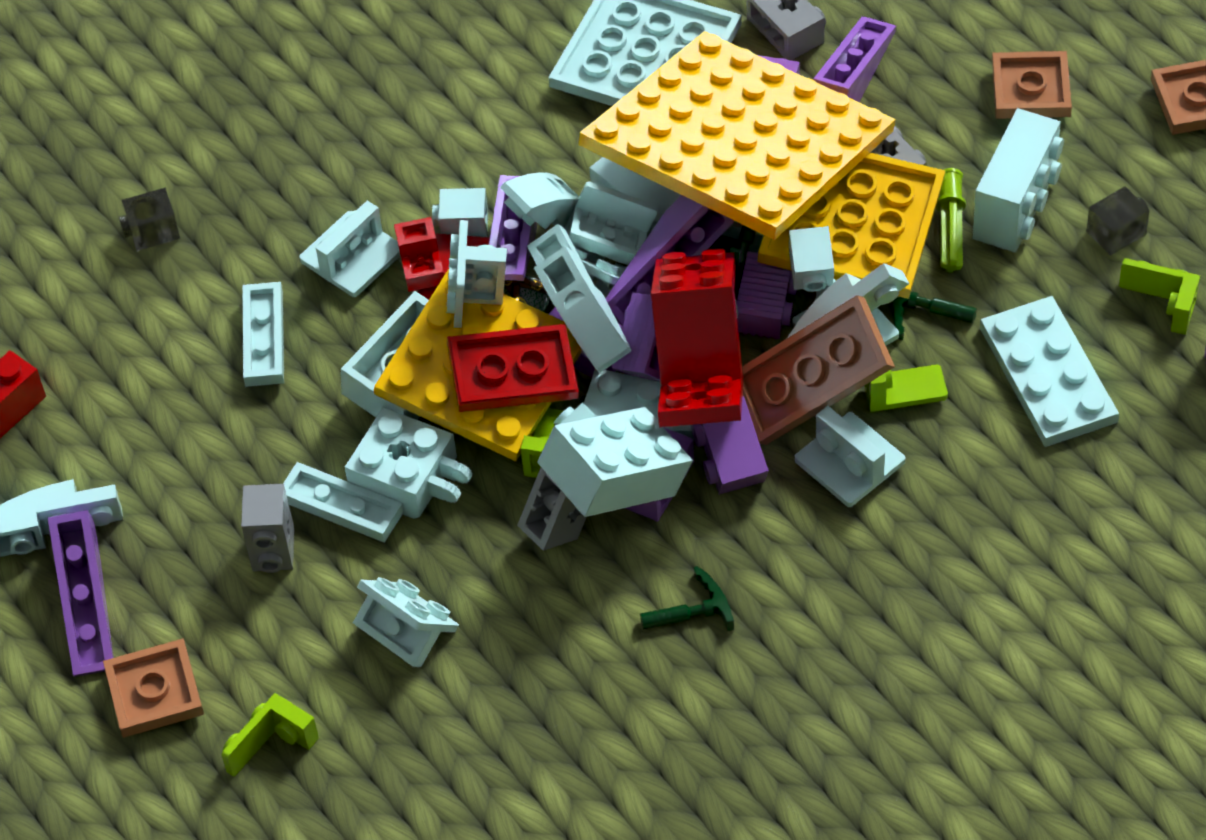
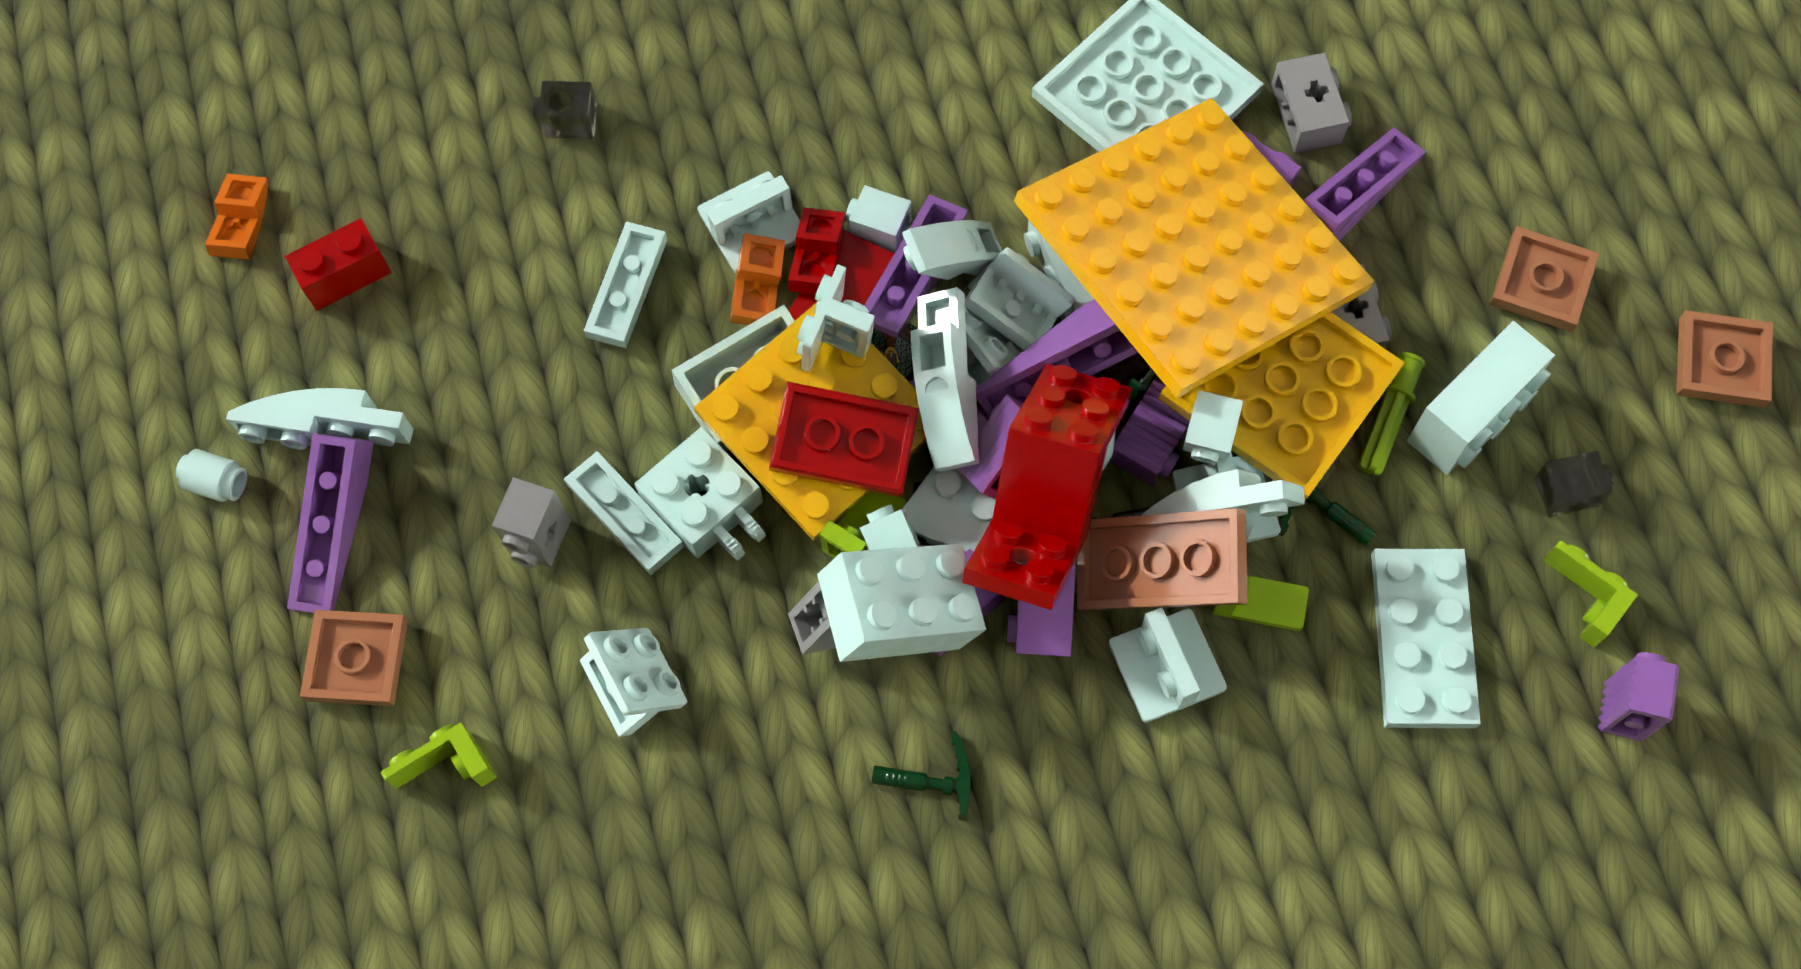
camera: 20 degrees right, 15 degrees up
(375, 290) = (756, 278): none -> orange slope

